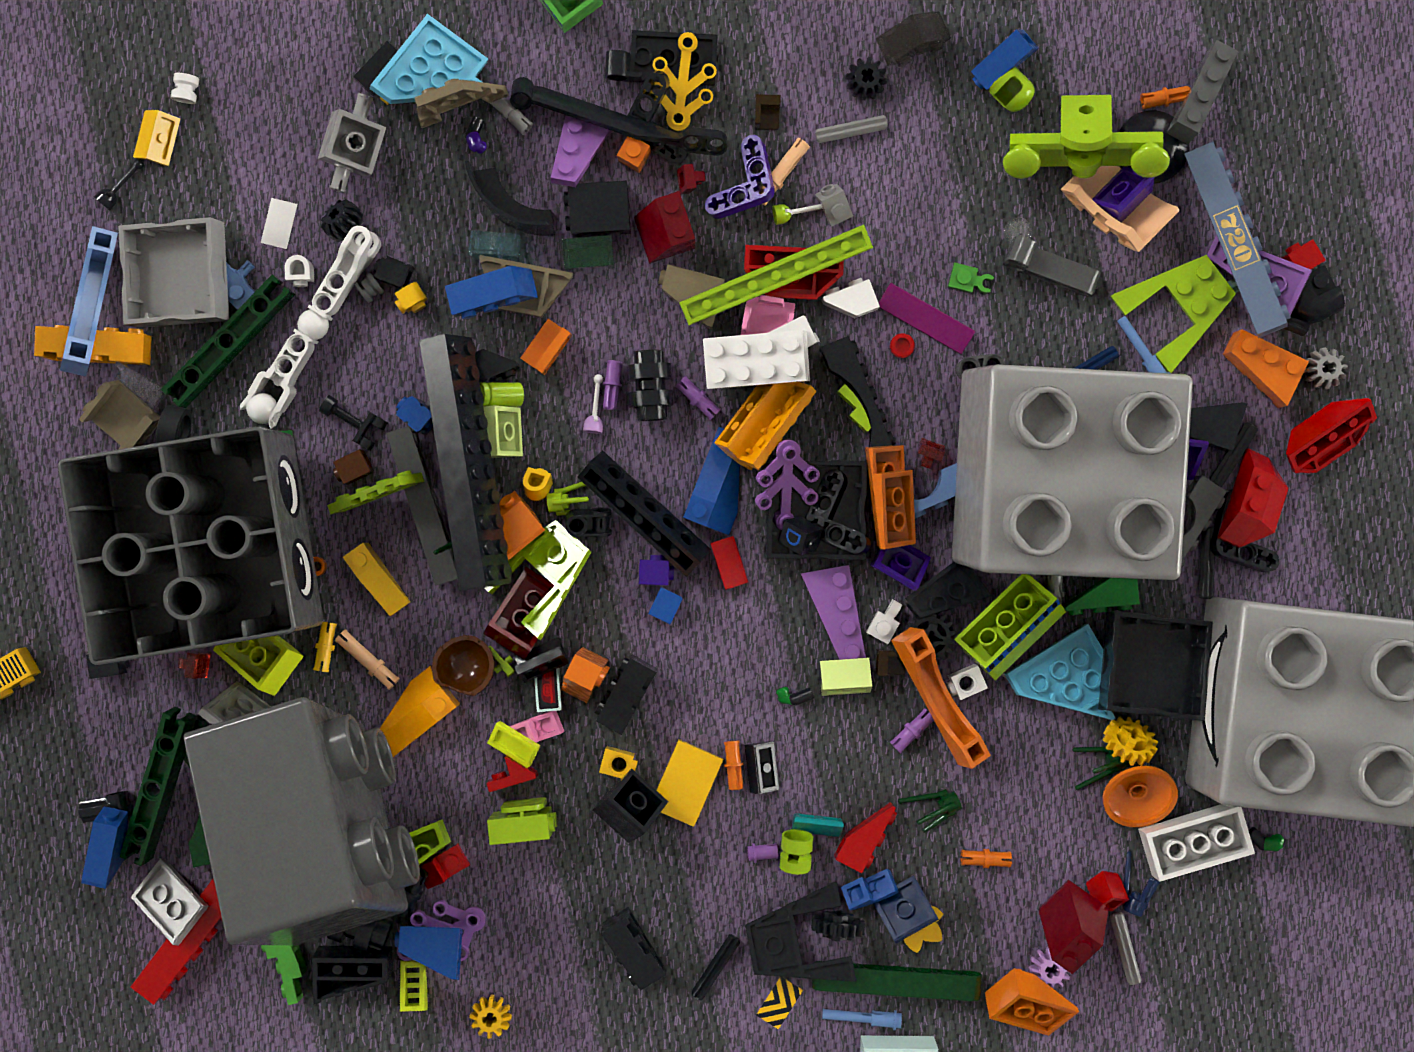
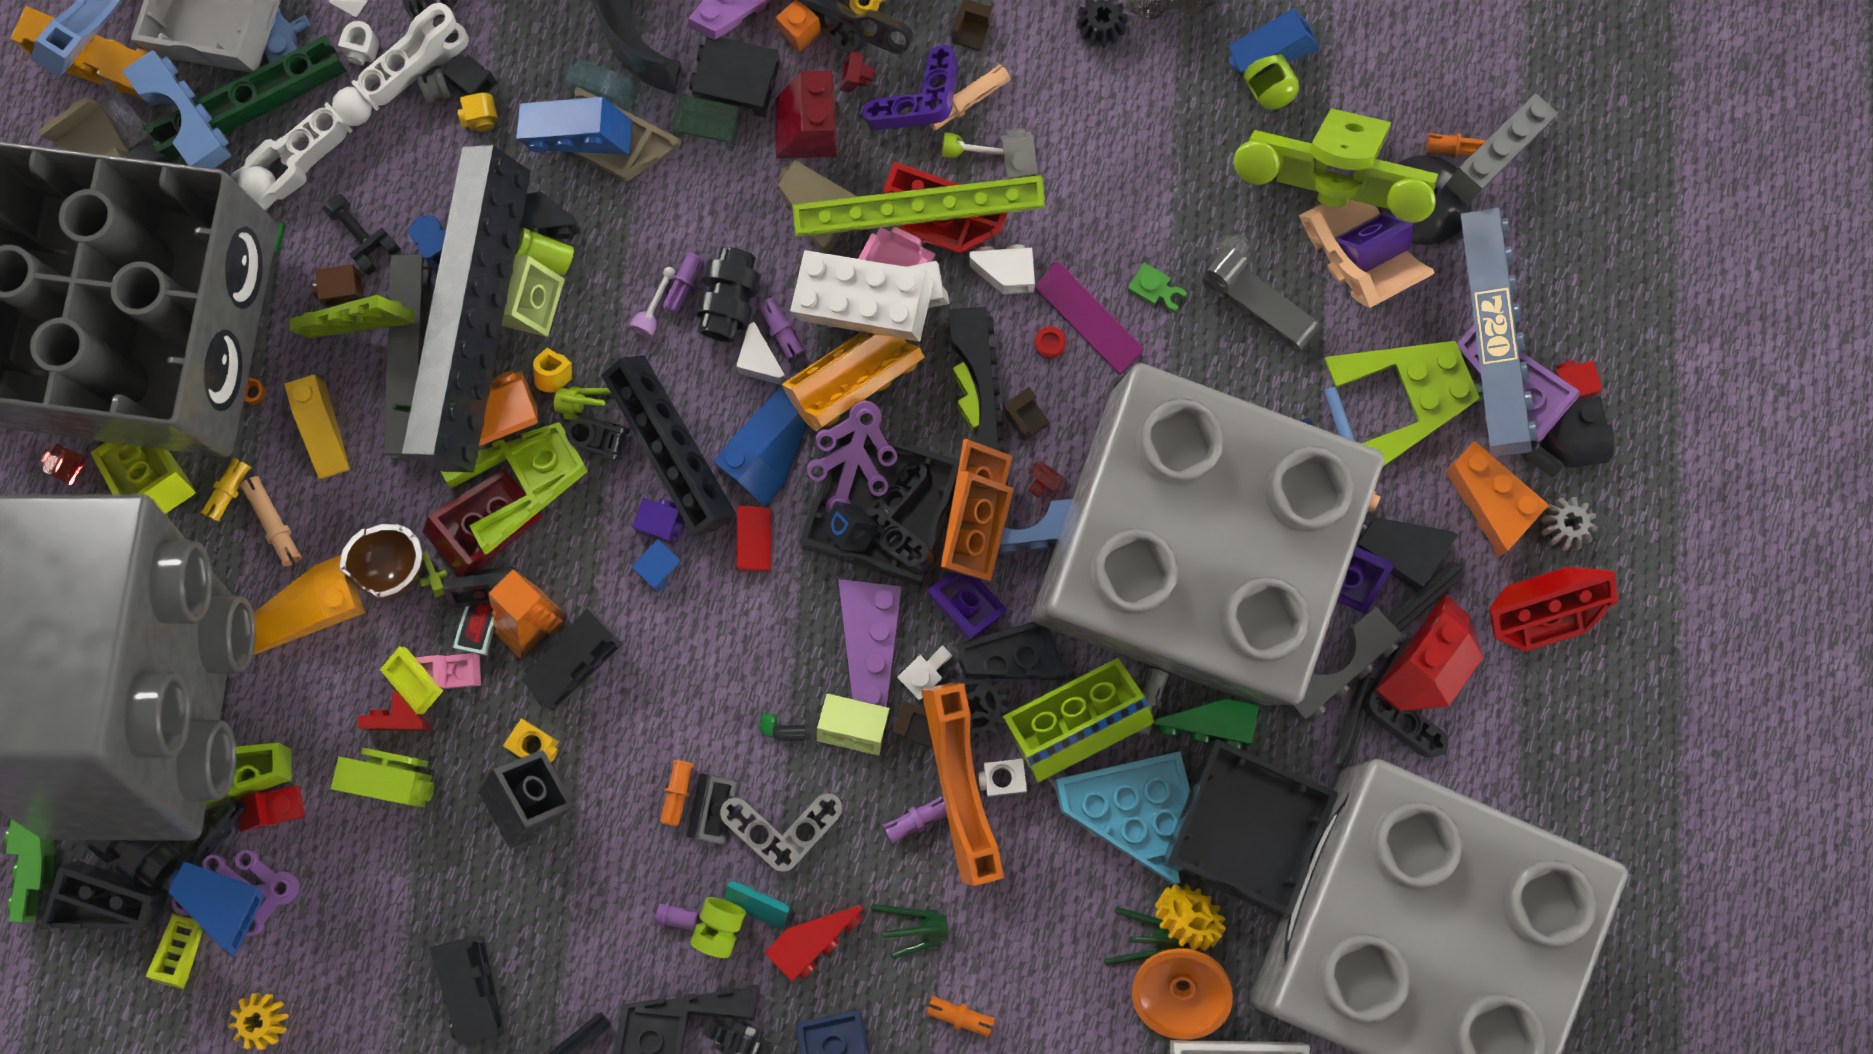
camera: 20 degrees right, 10 degrees down
(208, 391) = (157, 84): none -> medium blue arch
(546, 346) = (620, 217): orange panel -> none
(688, 426) = (757, 359): none -> white slope
(688, 781) = (611, 797): yellow tile -> none
(824, 772) = (788, 839): none -> light grey beam
(851, 129) = (1066, 74): light grey axle -> none
(869, 890) = (797, 1011): blue slope -> none
(901, 407) = (1025, 414): none -> dark brown panel

